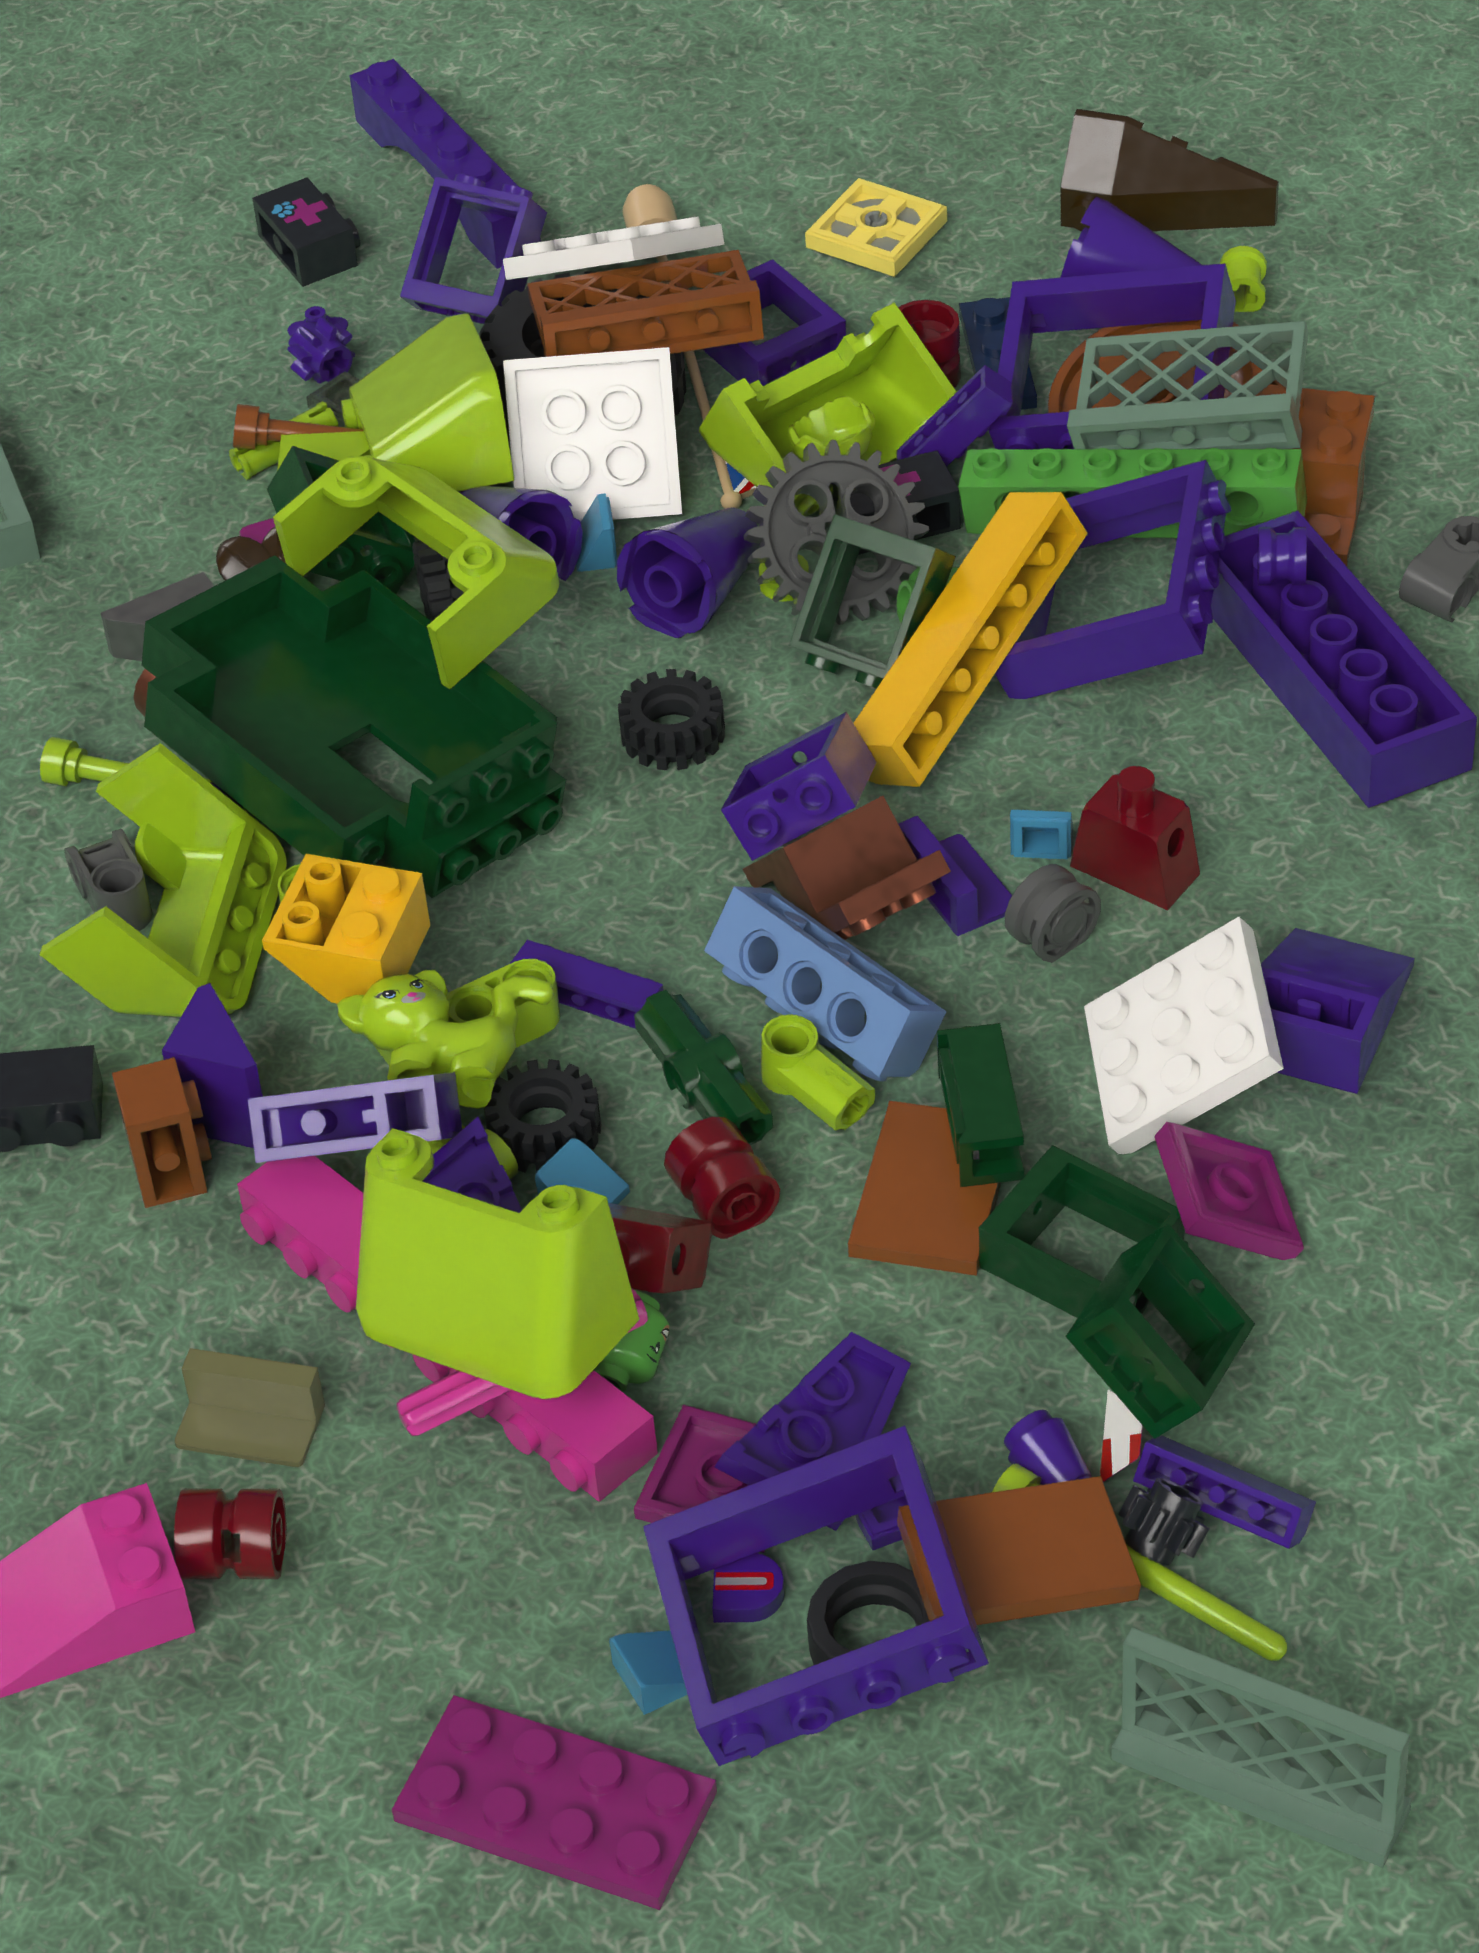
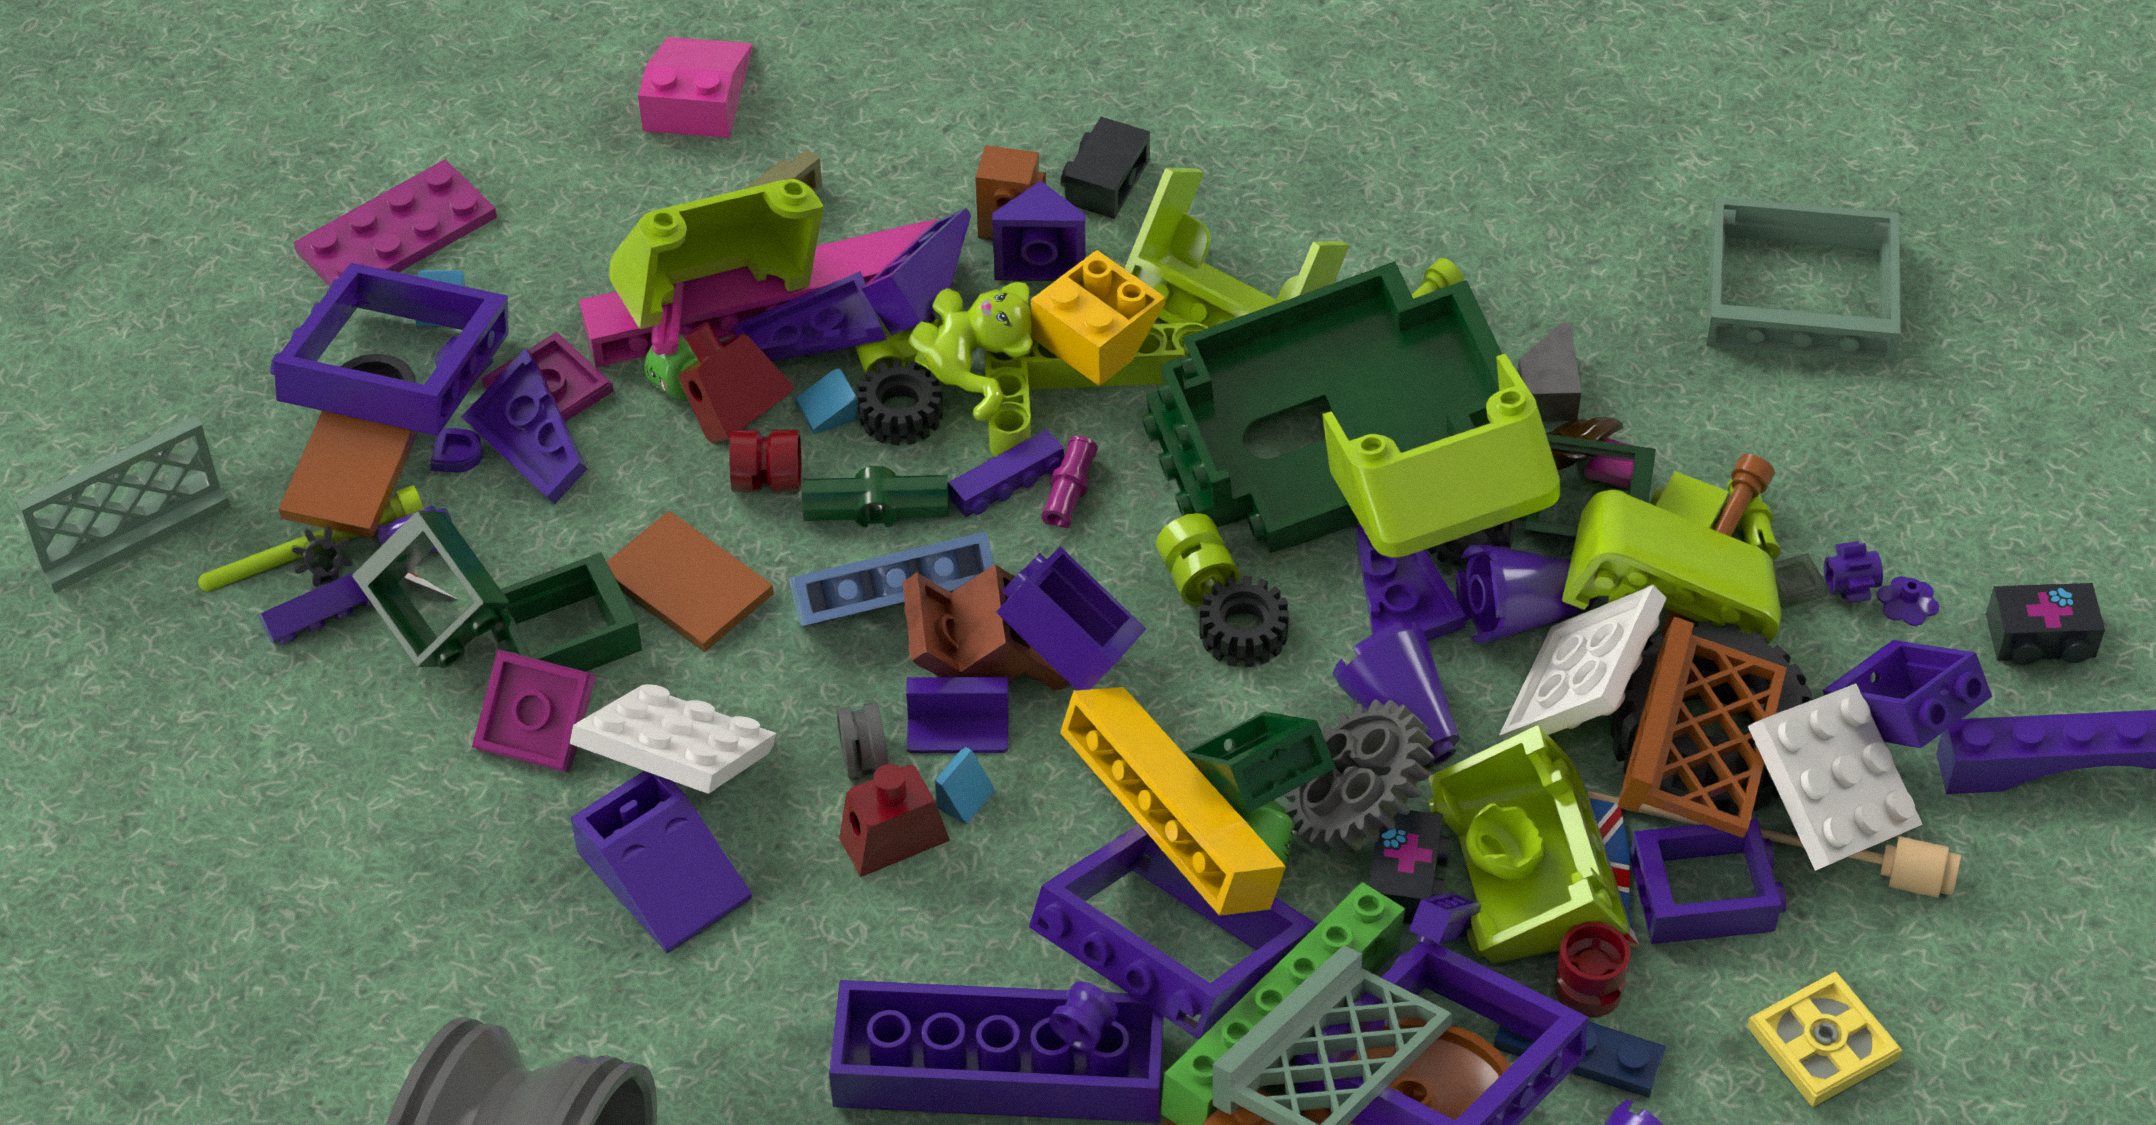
camera: 115 degrees right, 5 degrees up
(111, 878) = (1277, 258): dark grey piece -> none
(207, 1528) = (679, 145): dark red wheel -> none
(564, 629) = (1407, 592): none -> dark purple wing
(568, 927) = (1069, 482): none -> magenta pin
(598, 537) = (1494, 666): dark azure slope -> none
(620, 771) = (1195, 556): none -> lime wheel
(802, 1068) = (839, 543): lime piece -> none
(980, 1104) = (710, 608): dark green window -> none

